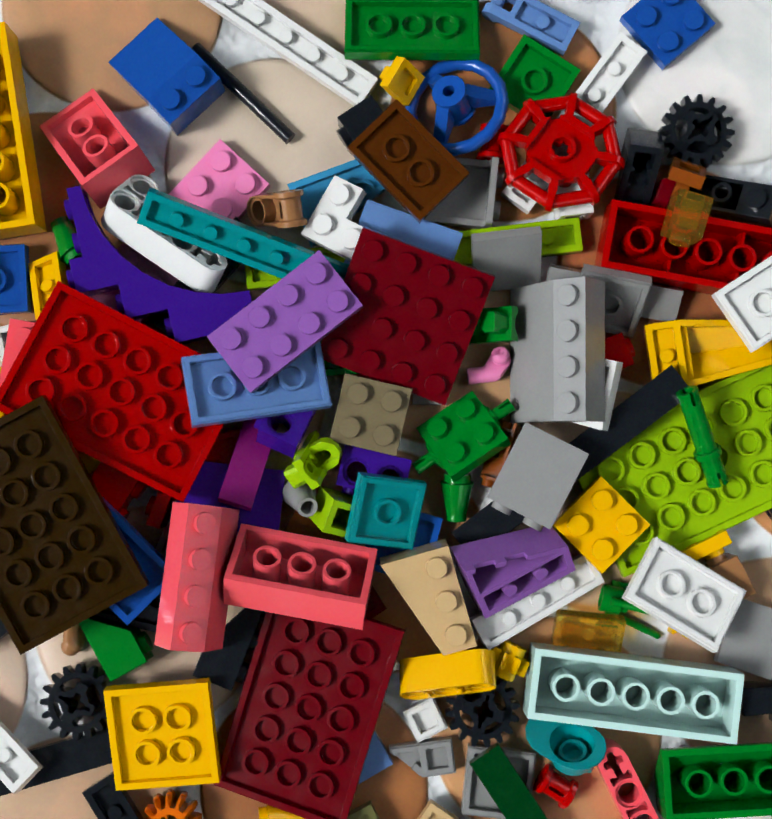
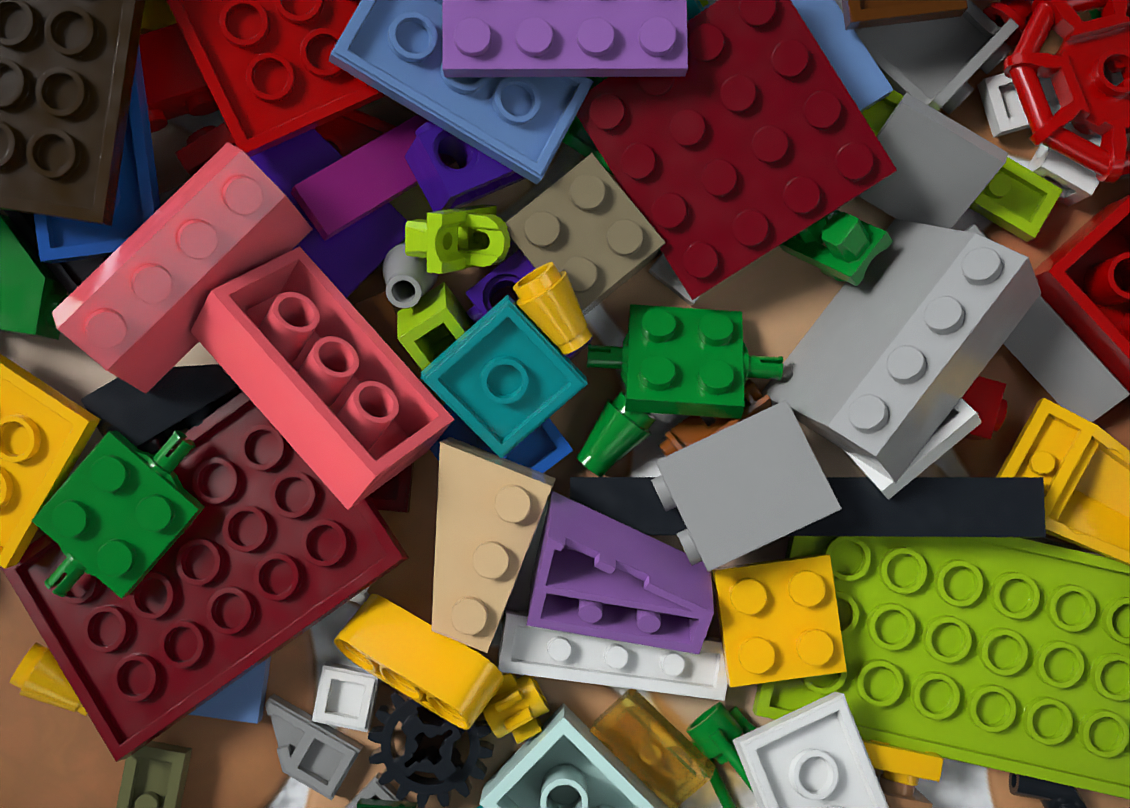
camera: 40 degrees right, 0 degrees up
(253, 715) = (118, 513): none -> green plate
(383, 461) = (553, 307): none -> yellow cone
(493, 368) = (790, 306): bright pink arm -> none
(624, 297) = (1045, 341): light grey tile -> none
(706, 449) = (1003, 627): green pin -> none

